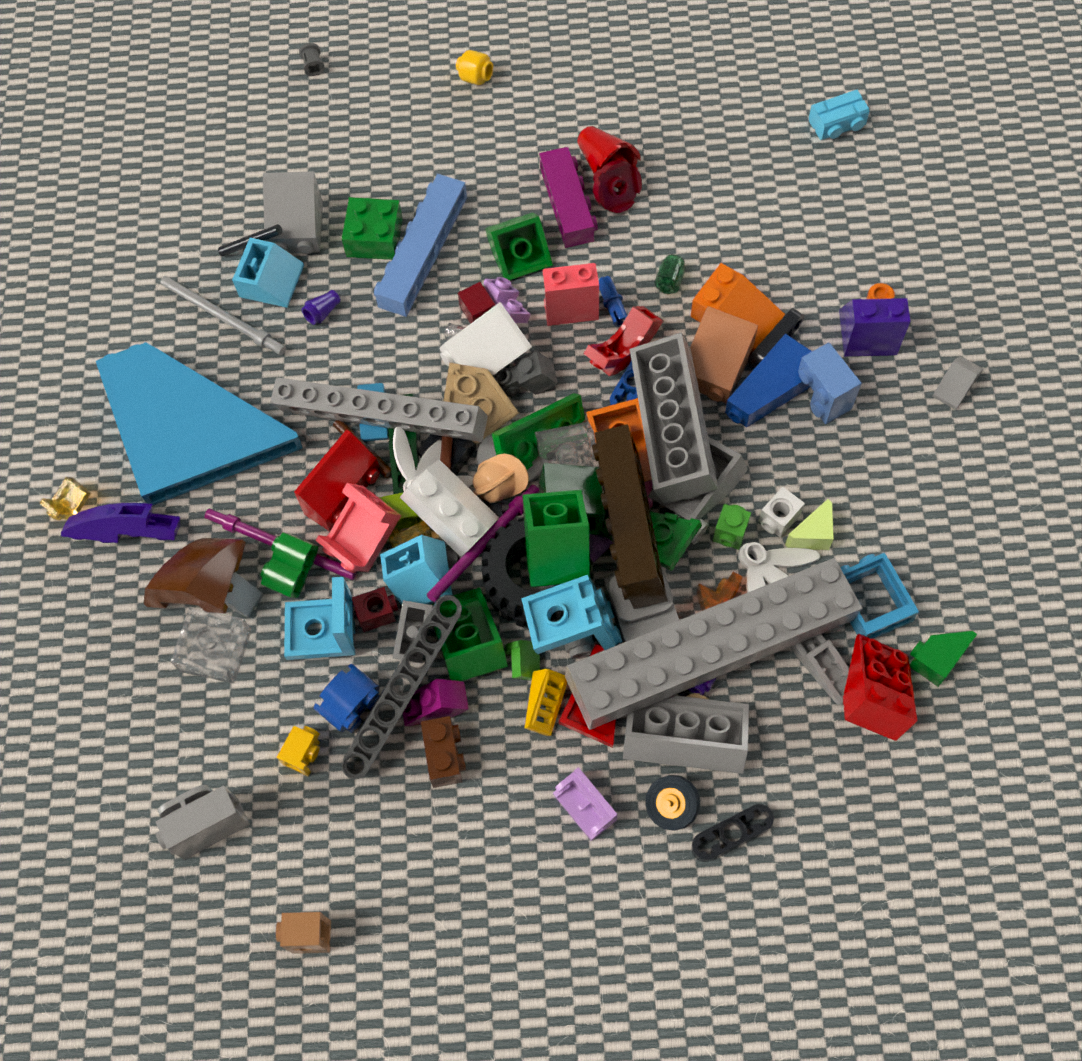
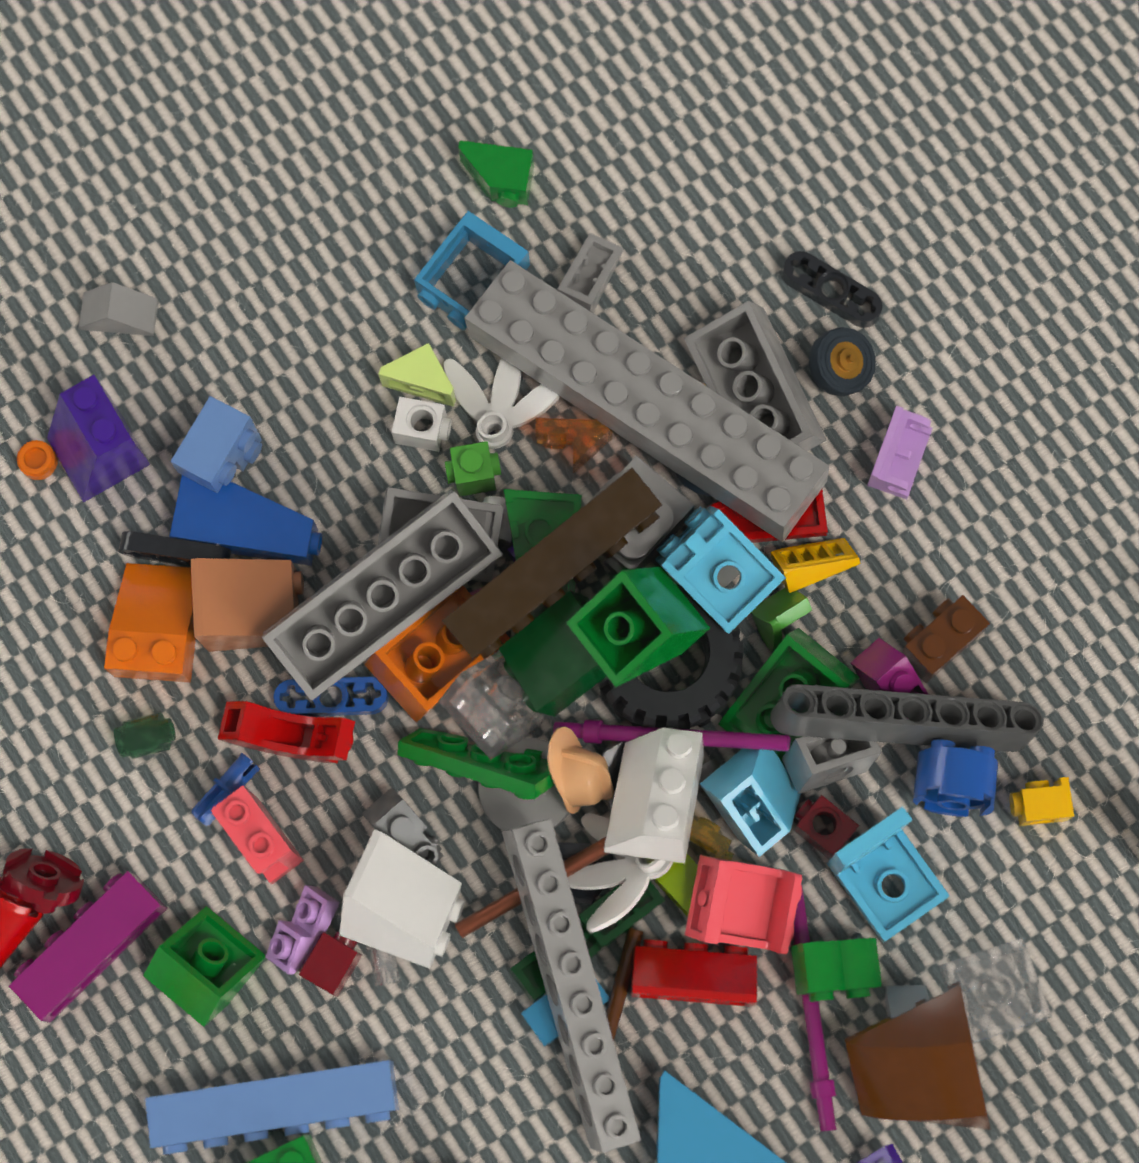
camera: 120 degrees left, 10 degrees up
(479, 388) = (475, 870): tan tile -> none
(879, 689) = (581, 212): red slope -> none

